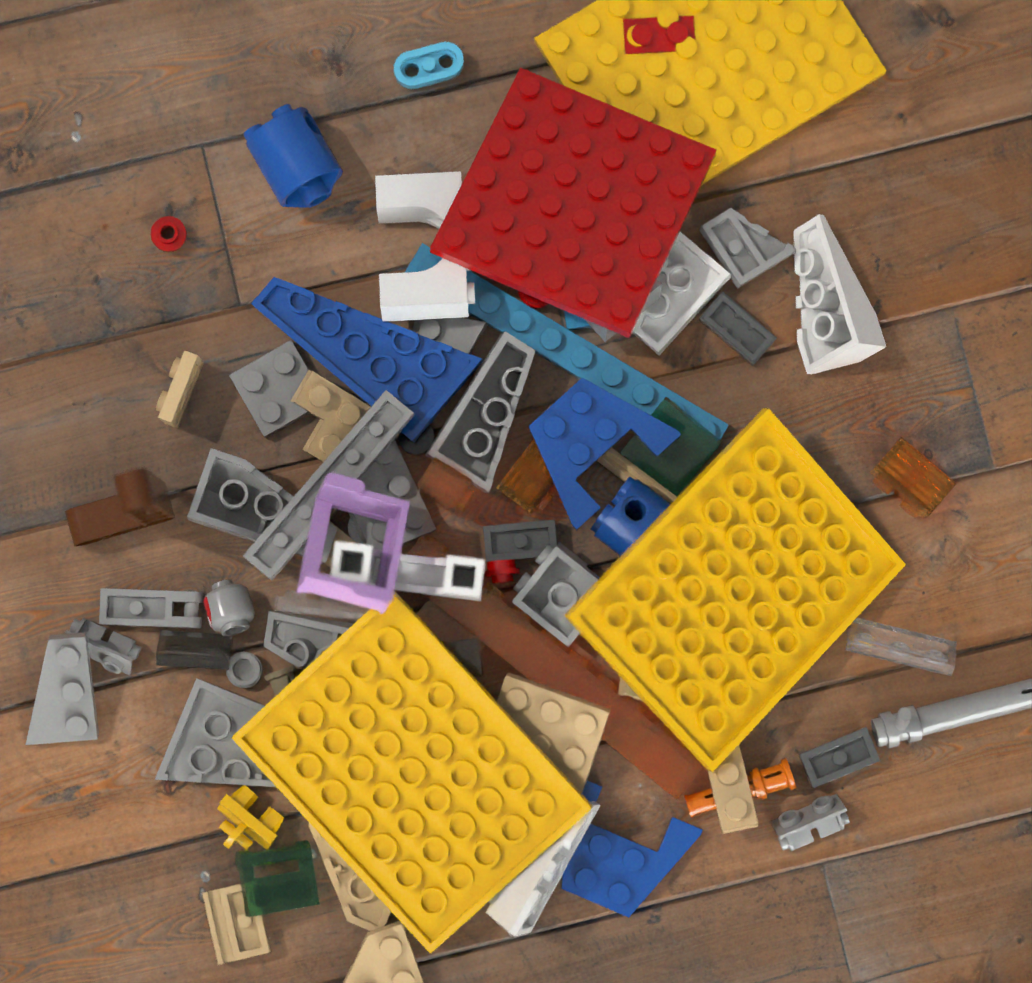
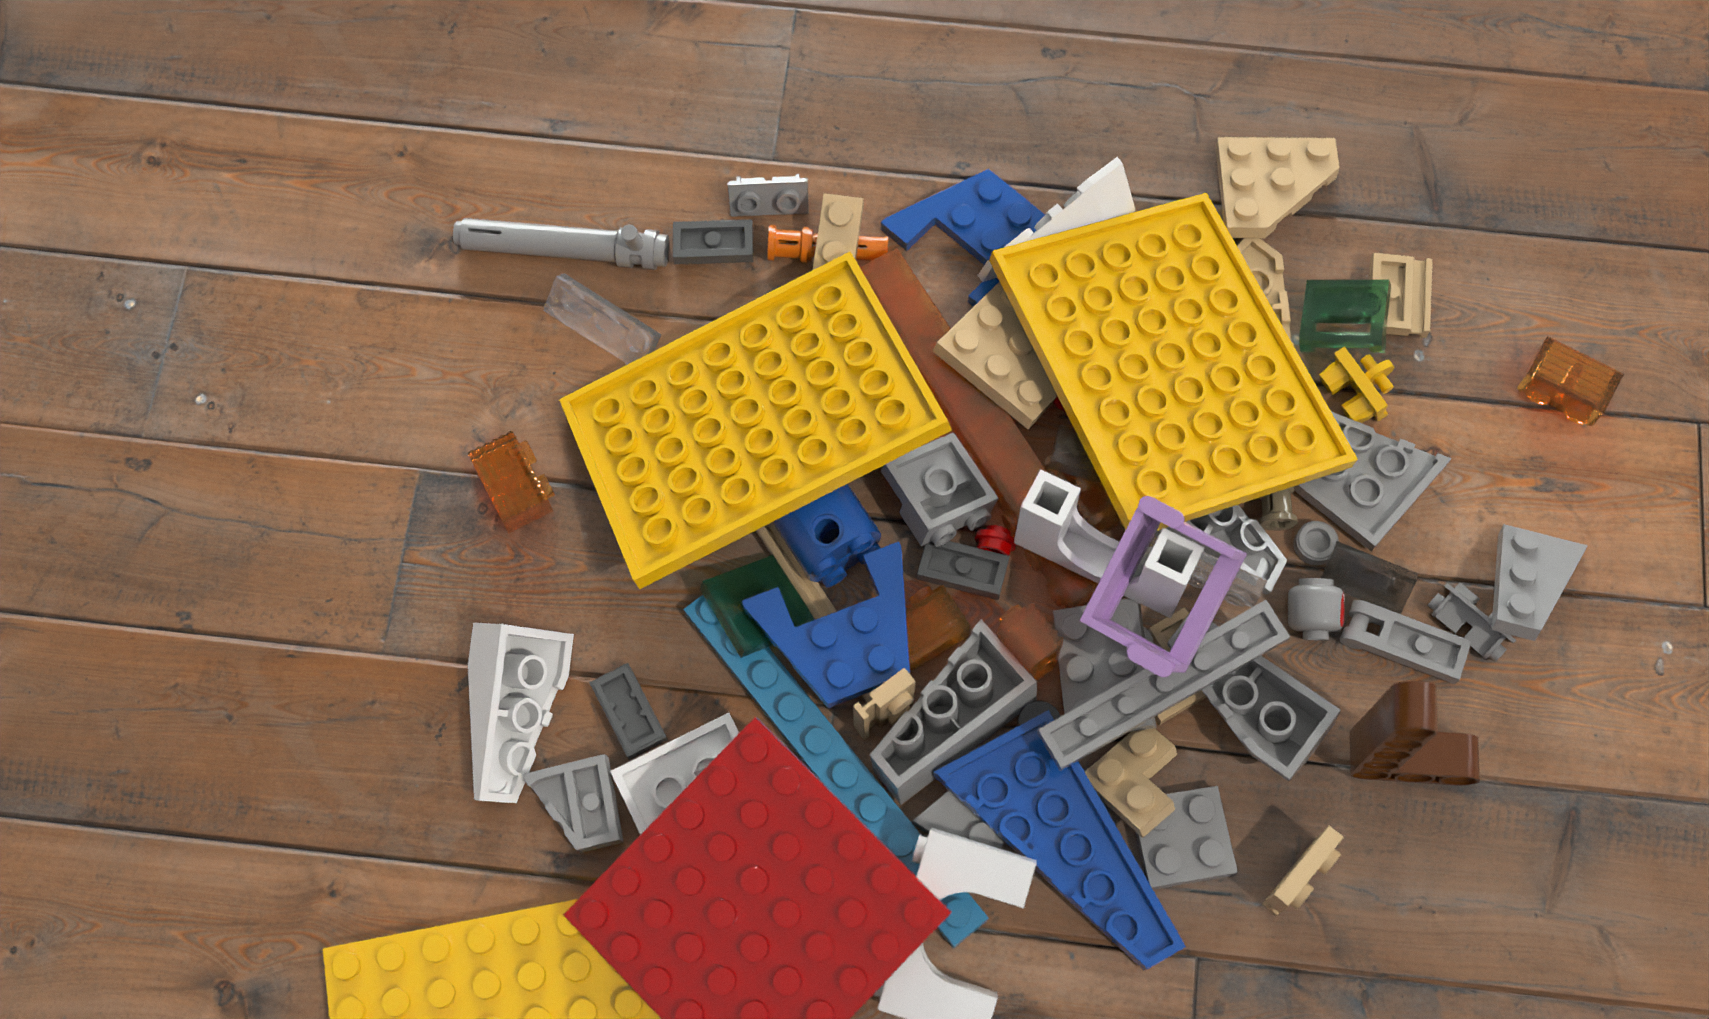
camera: 155 degrees left, 15 degrees down
(73, 888) = (1569, 382): none -> clear orange brick
(536, 400) = (885, 703): none -> tan plate

